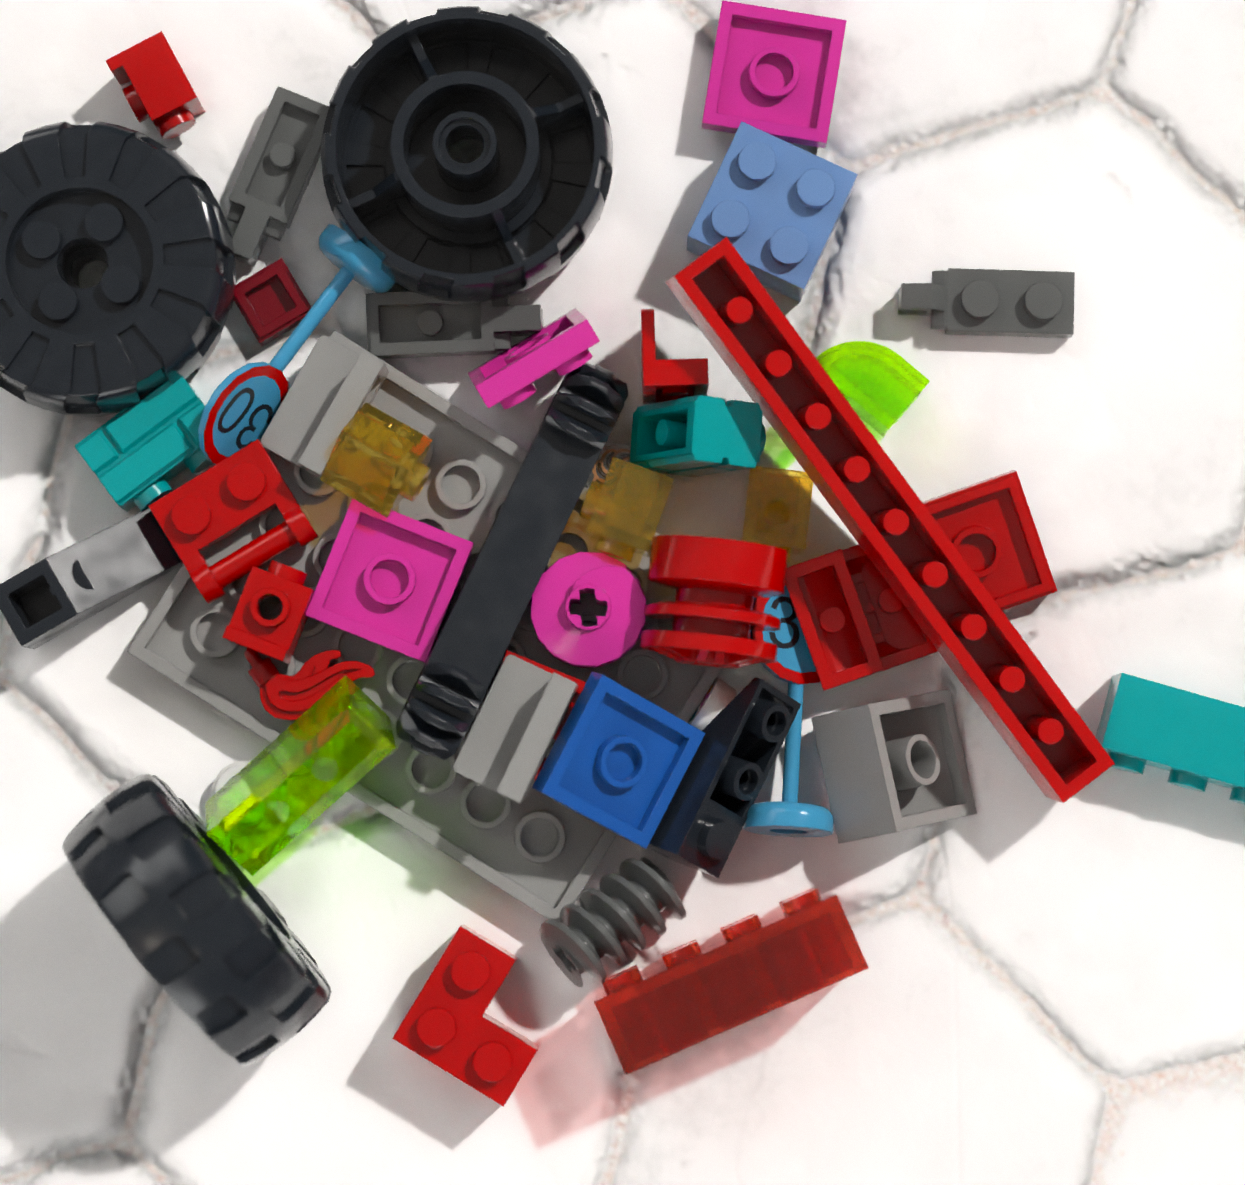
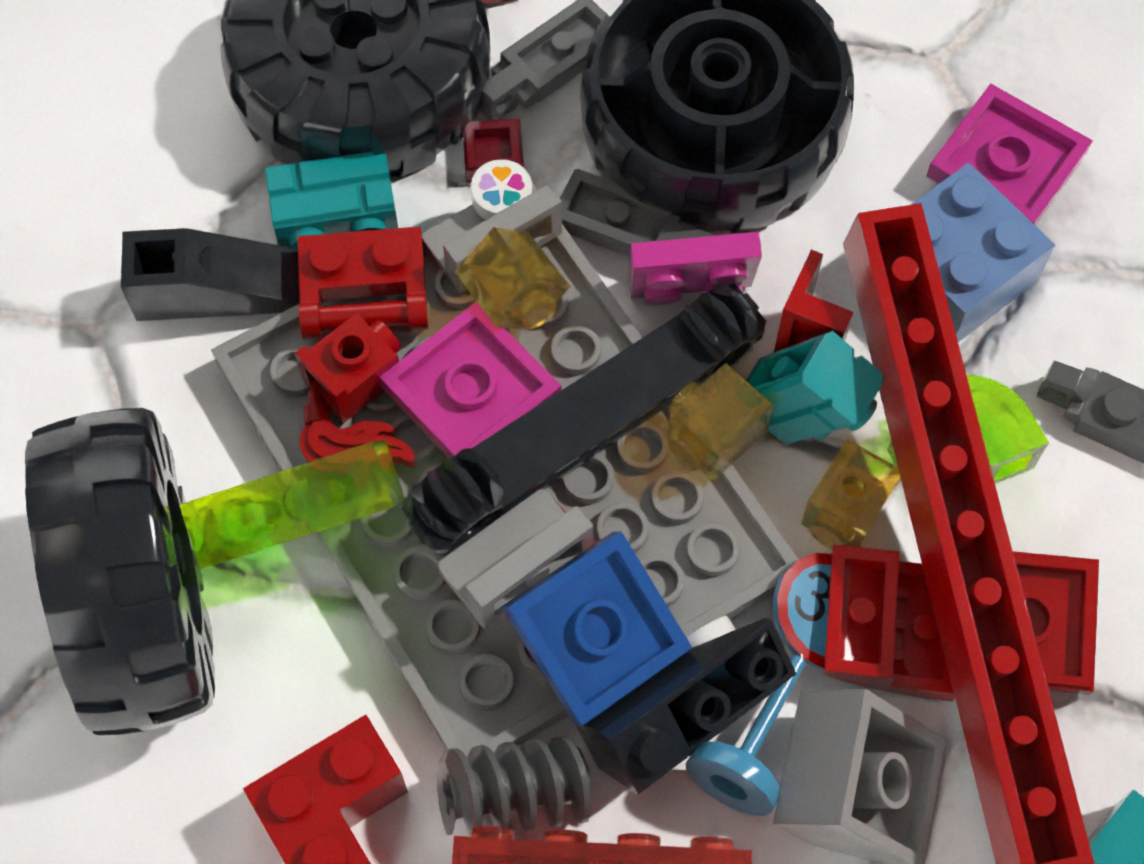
camera: 25 degrees right, 20 degrees down
(252, 394) = (432, 189): dark azure piece -> none
(315, 365) = (498, 186): none -> white tile
(564, 632) = (640, 461): dark pink piece -> none
(714, 599) = (761, 522): red wheel -> none

